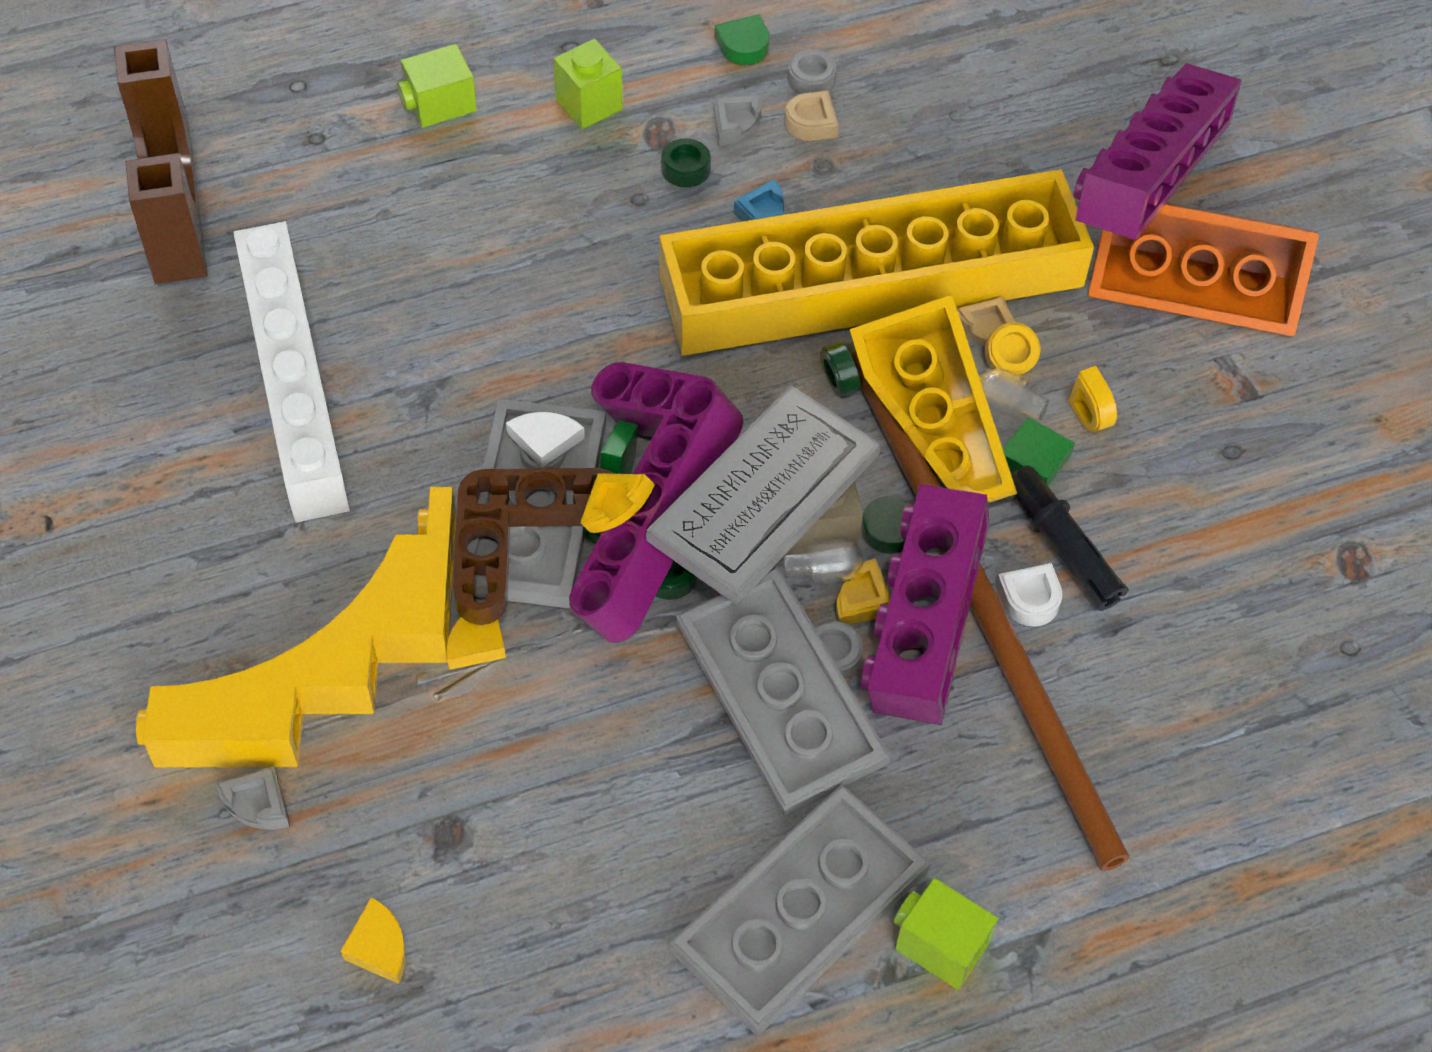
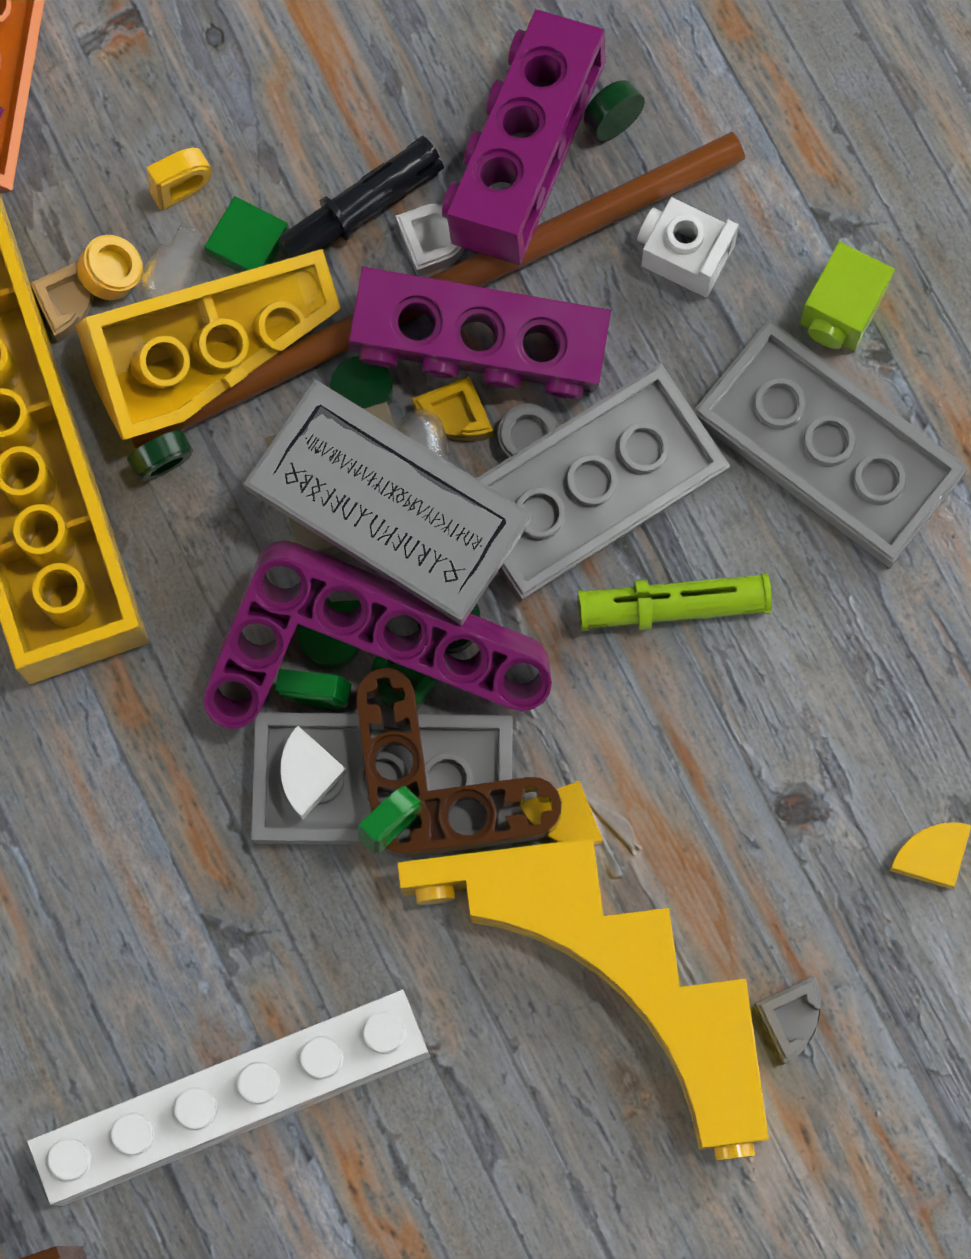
camera: 90 degrees left, 20 degrees up
(482, 465) = (389, 819): none -> green tile
(615, 500) = (412, 667): yellow tile -> none
(659, 742) = (673, 601): none -> lime pin
(1005, 813) = (690, 264): none -> white brick
(1152, 750) = (613, 110): none -> dark green tile
(1156, 686) = (505, 220): none -> magenta brick

